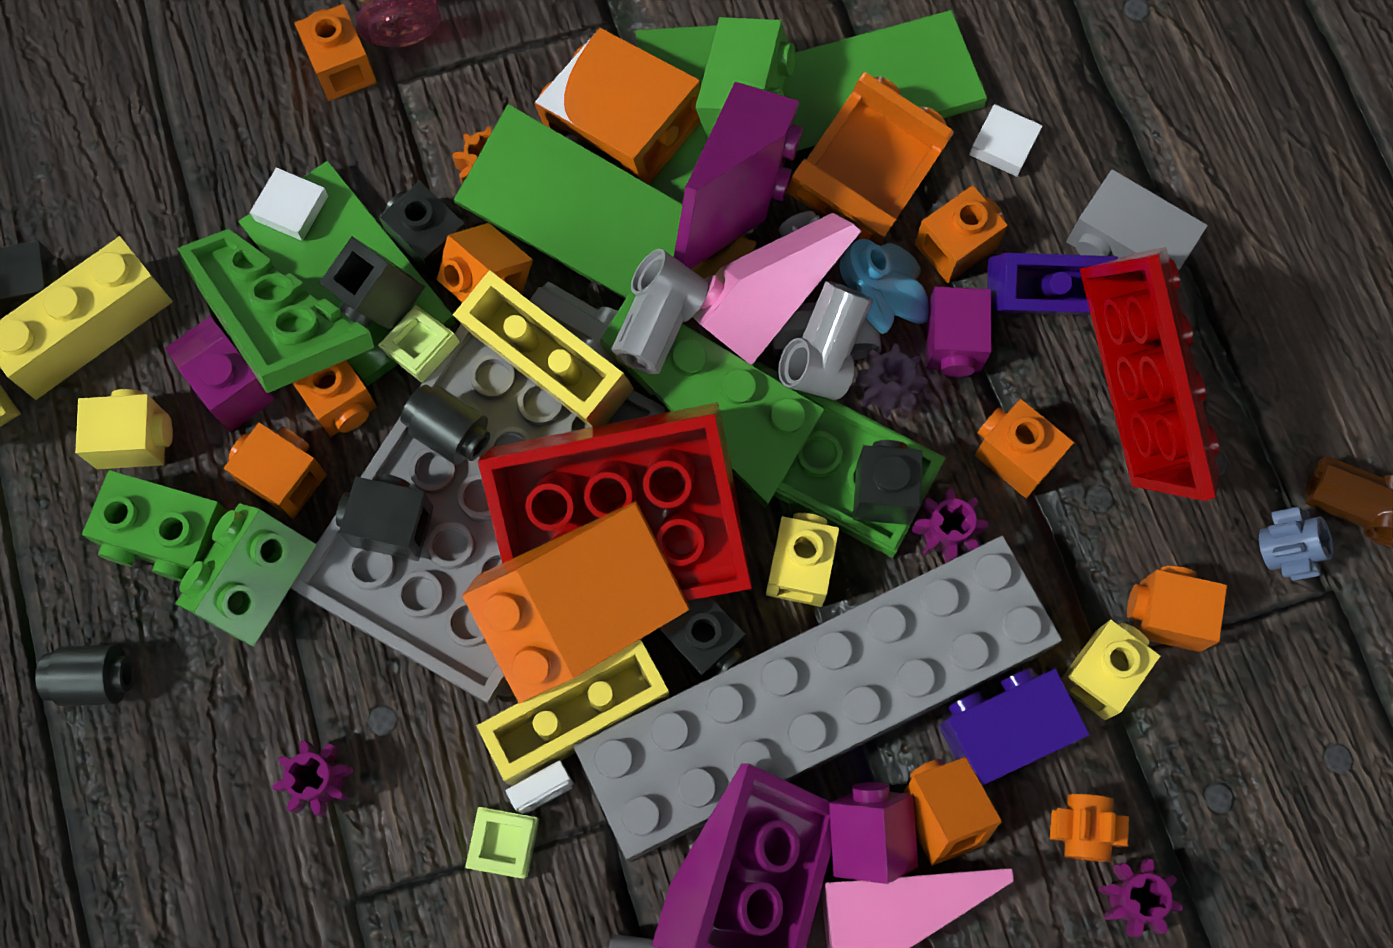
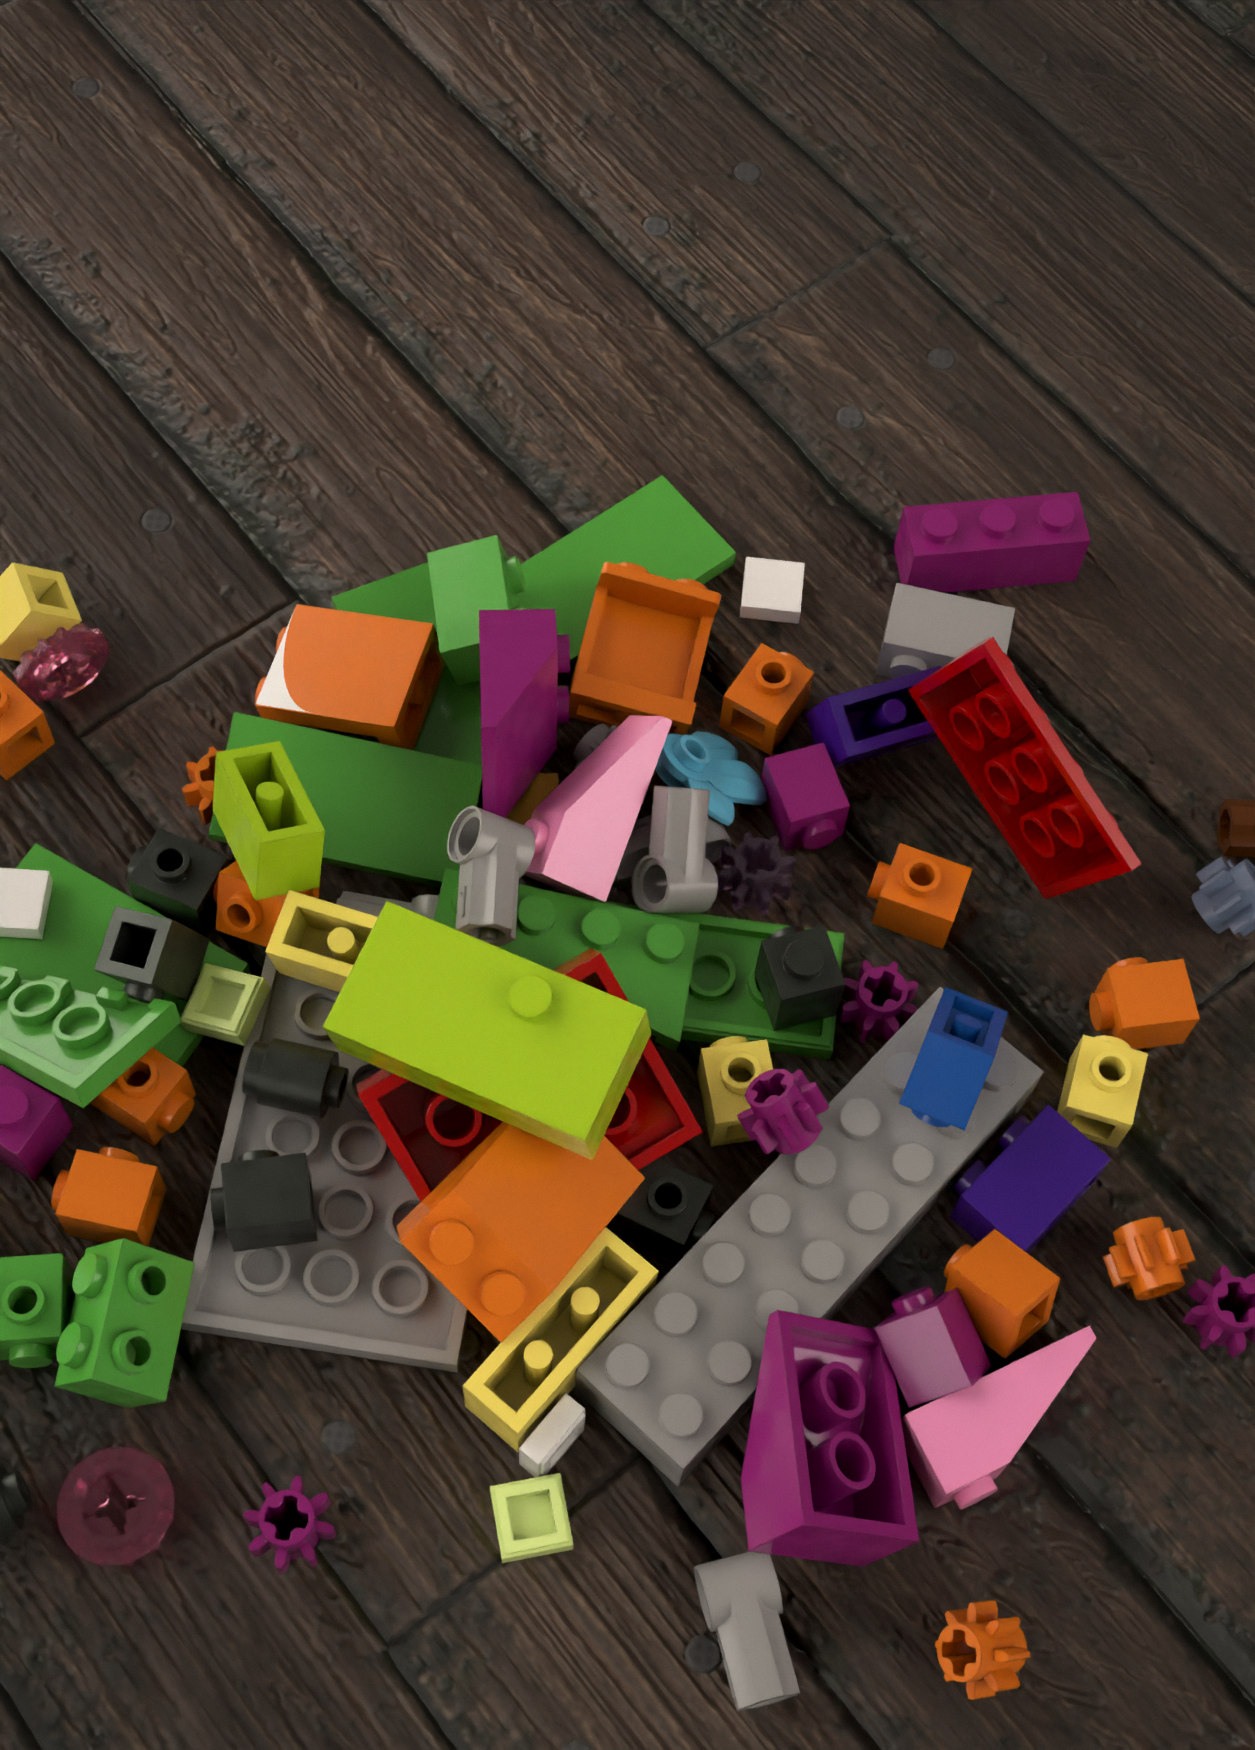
camera: 25 degrees left, 10 degrees down
(177, 691) = (87, 1491): none -> clear pink gear
(494, 205) = (268, 820): none -> lime brick
(593, 448) = (489, 1029): none -> lime brick
(822, 597) = (783, 1111): none -> magenta gear
(983, 605) = (954, 1060): none -> blue slope
(1213, 160) = (992, 543): none -> magenta brick

